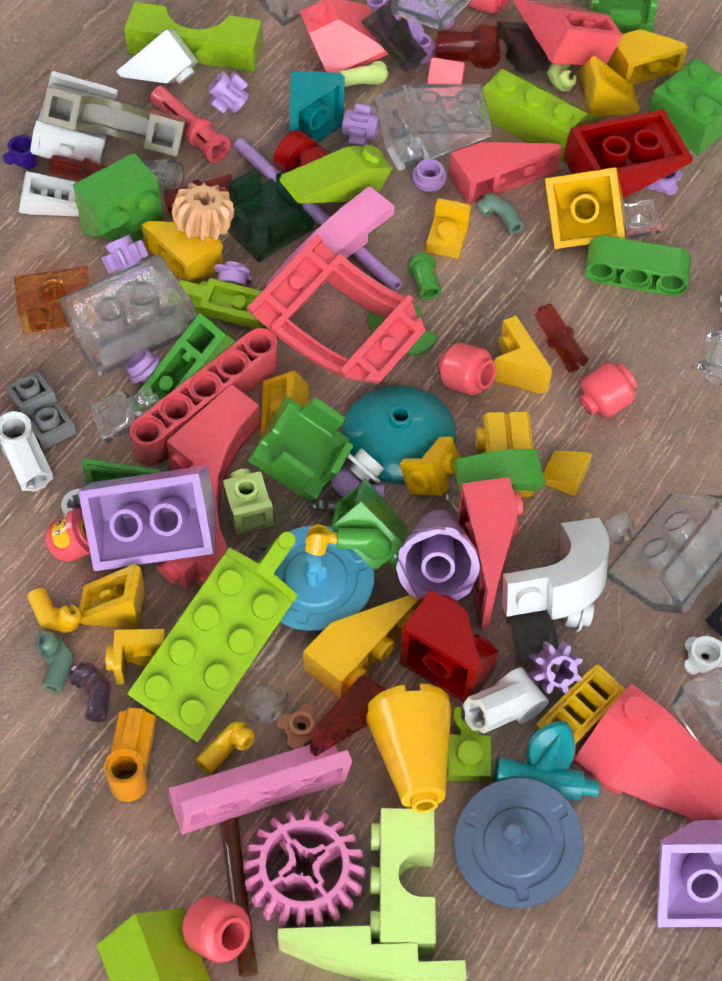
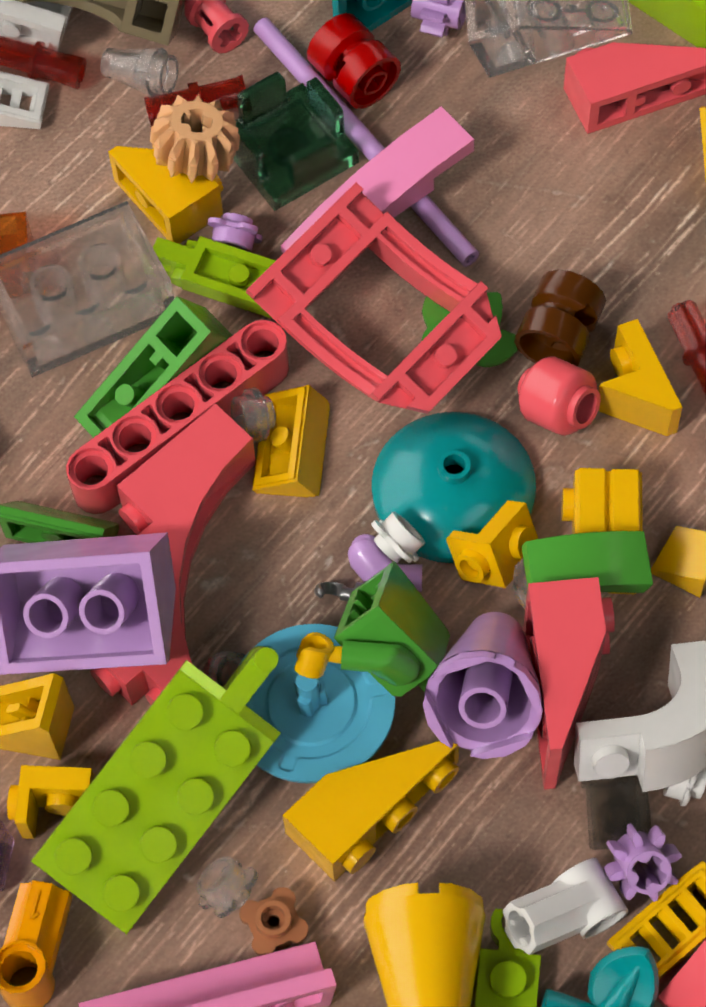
camera: 10 degrees right, 5 degrees up
(118, 200) = (78, 113): bright green slope -> none
(120, 410) = (57, 433): clear plate -> none
(123, 254) = (80, 194): lavender gear -> none
(142, 366) = (94, 365): lavender plate -> none
(232, 737) = (175, 931): yellow arm -> none
(248, 501) = (230, 594): yellowish green brick -> none
(258, 390) = (254, 413): none -> clear plate
(302, 447) = (309, 504): bright green panel -> none
(338, 175) = (397, 88): lime slope -> none
(345, 716) = (336, 912): clear red slope -> none
(422, 268) = (510, 234): bright green pin -> none
(429, 175) = (533, 77): lavender plate -> none
(442, 649) = (484, 826): red slope -> none
(448, 228) = (554, 174): yellow bracket -> none
(463, 317) = (560, 317): none -> reddish brown wheel
(504, 208) = (639, 144): sand green arm -> none

